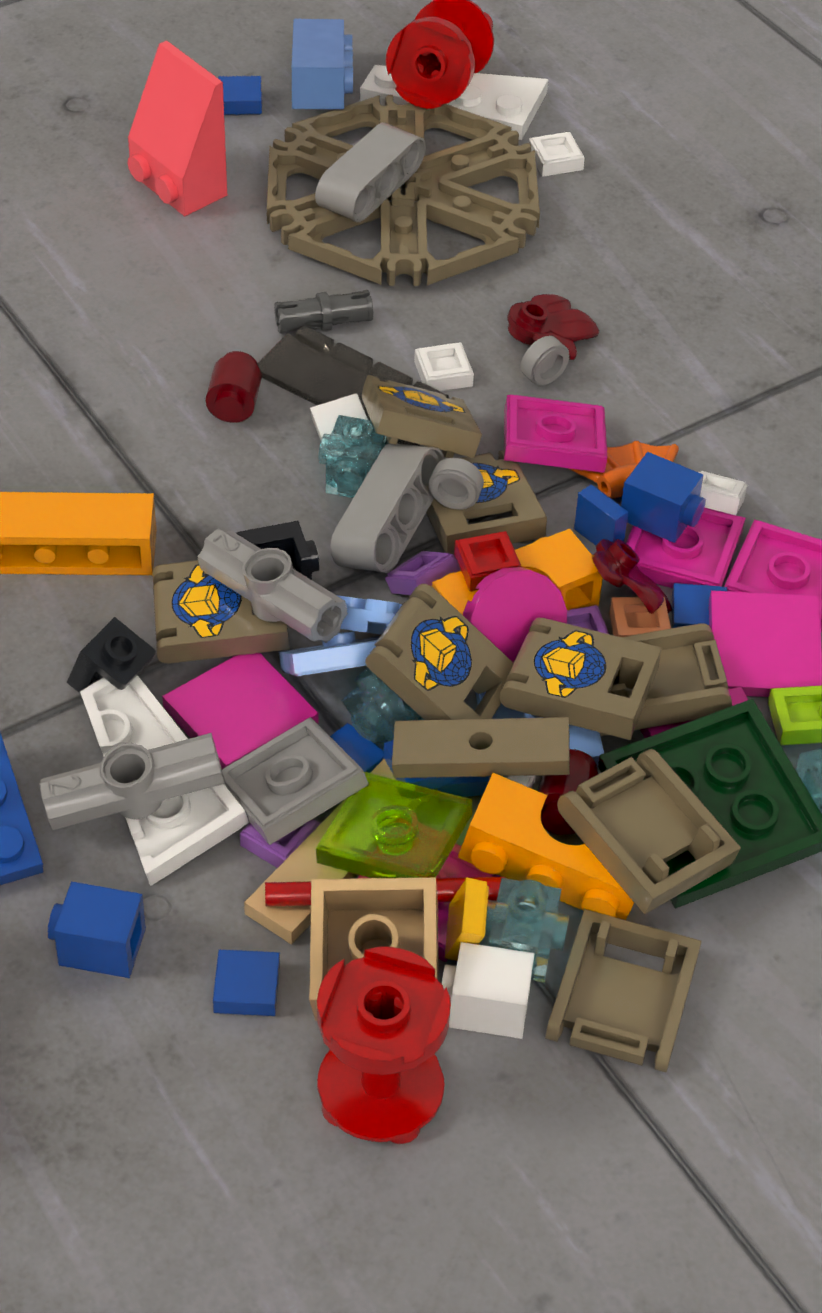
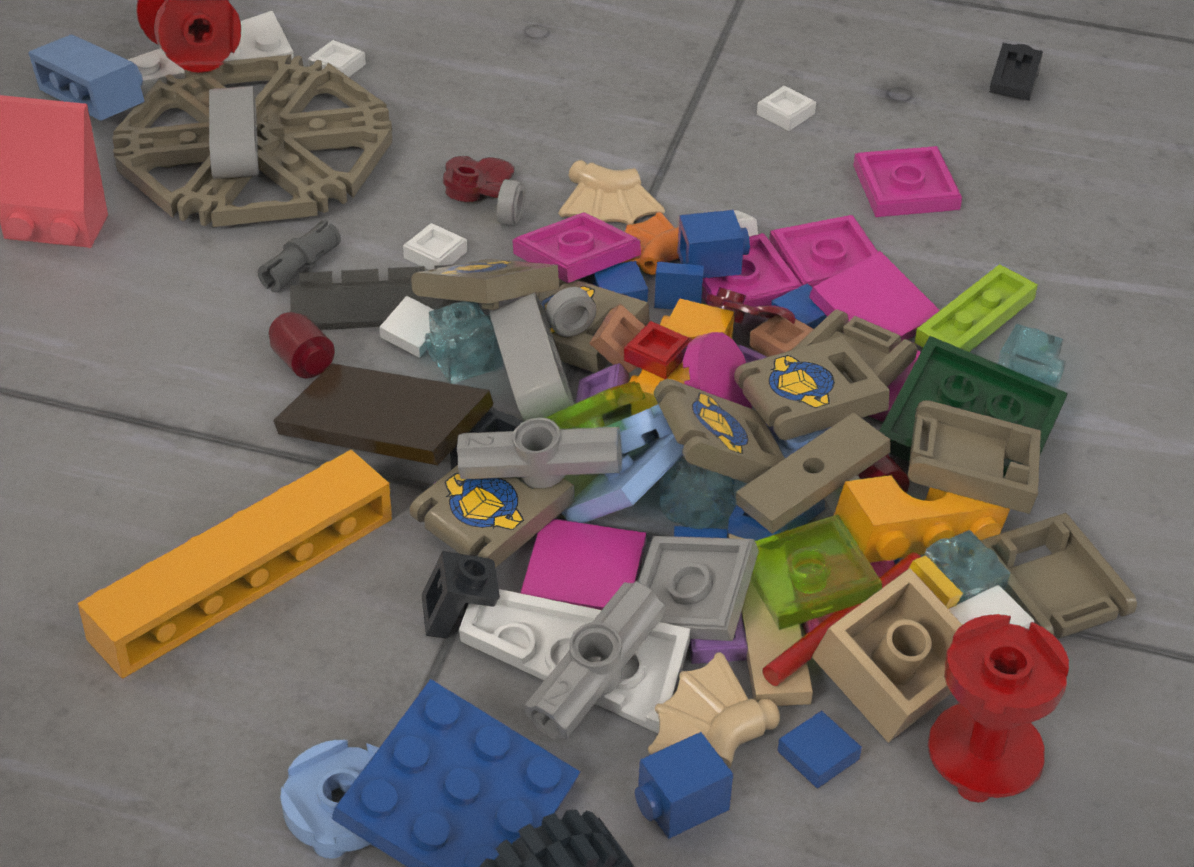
camera: 40 degrees left, 5 degrees down
(191, 892) = (717, 706): none -> tan arm
(222, 480) = (384, 413): none -> dark brown tile
(360, 578) = (590, 411): none -> clear neon green plate
(472, 522) = (615, 333): none -> nougat plate
(559, 488) = (623, 279): none -> blue tile
(647, 404) = (608, 194): none -> tan arm

